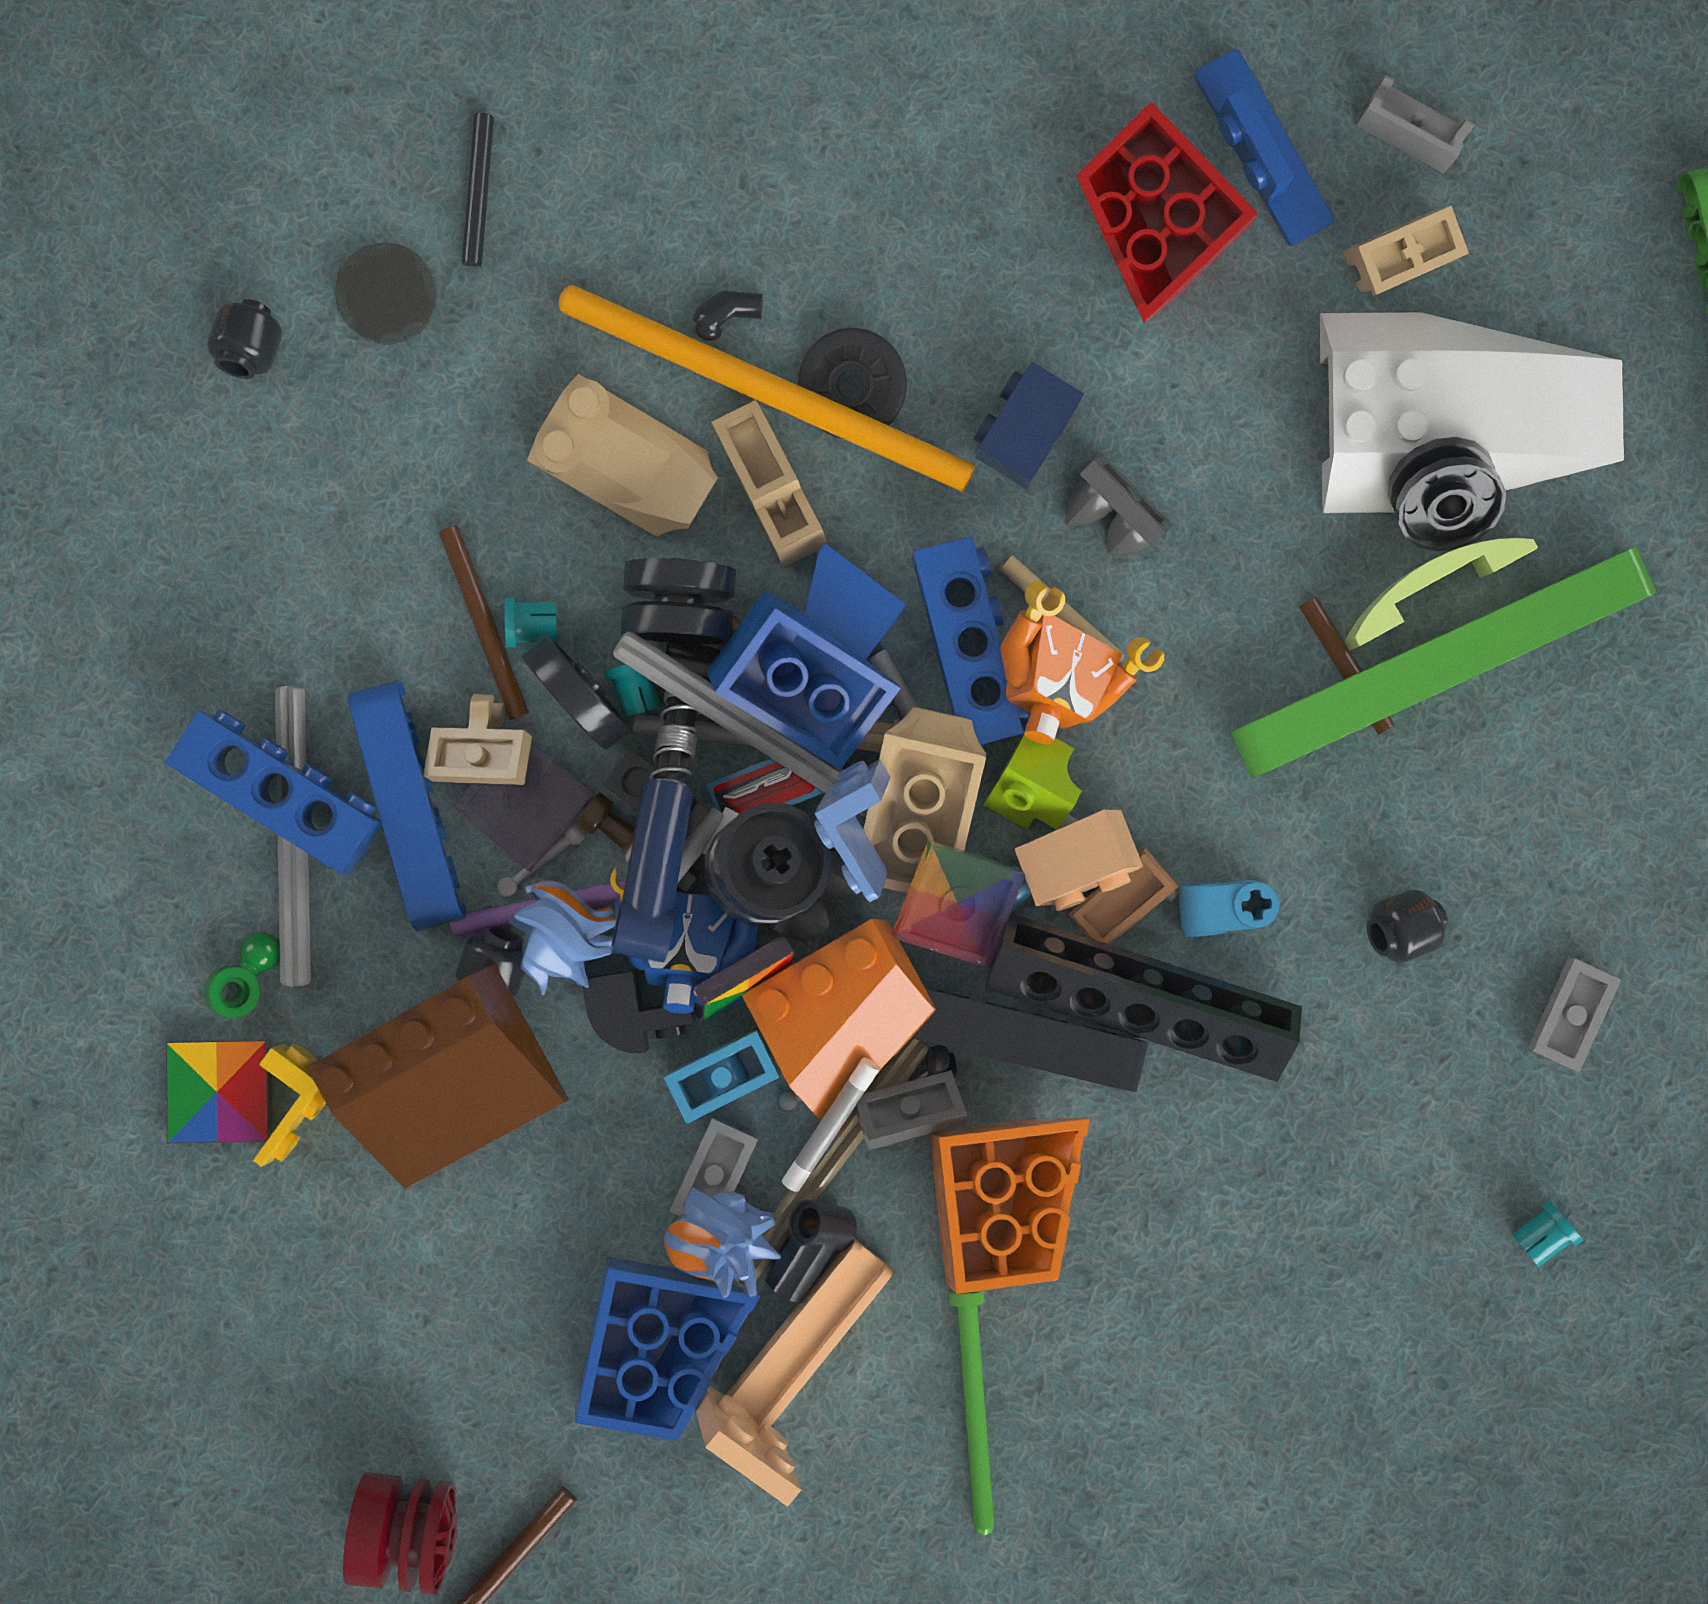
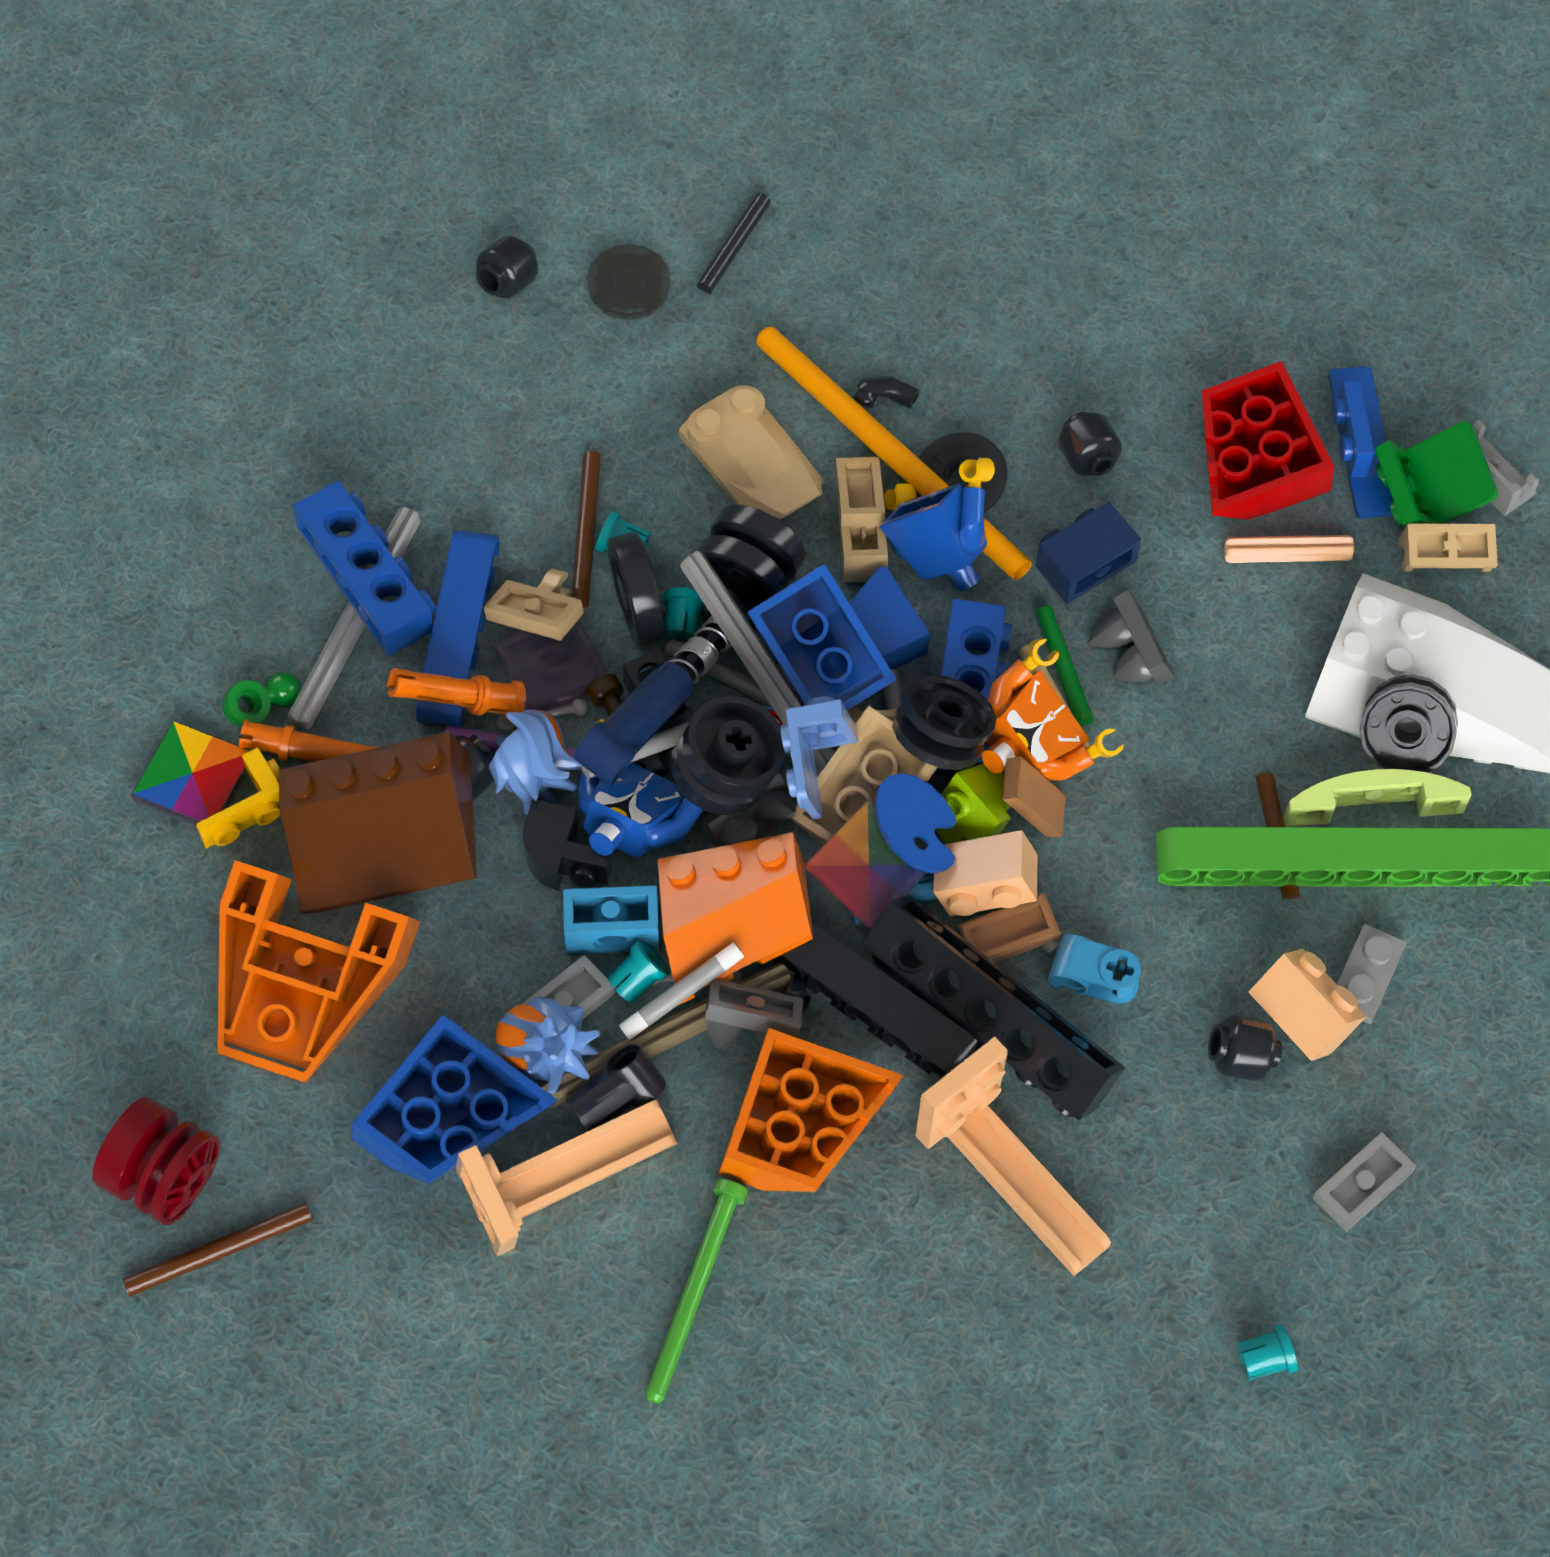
camera: 20 degrees right, 25 degrees down
(319, 1012) = (295, 744): none -> orange pin
(432, 1272) = (292, 989): none -> orange wedge
(467, 889) = (476, 694): none -> orange pin
(726, 988) = (658, 836): clear purple tile -> none
(776, 1109) = (638, 972): none -> teal bush
(863, 476) = (941, 529): none -> blue torso
(976, 286) = (1088, 442): none -> black head
(977, 834) = (912, 810): none -> blue piece
(979, 697) = (944, 722): none -> black wheel
(1053, 564) = (1064, 666): none -> green bar
(1091, 748) = (1034, 797): none -> medium nougat tile
(1176, 1128) = (960, 1110): none -> light nougat bracket
(1233, 318) = (1289, 548): none -> light nougat axle
(1367, 170) = (1437, 477): none -> green bracket
(1455, 856) = (1307, 1003): none -> light nougat brick
(1494, 783) = (1371, 968): none -> light grey plate

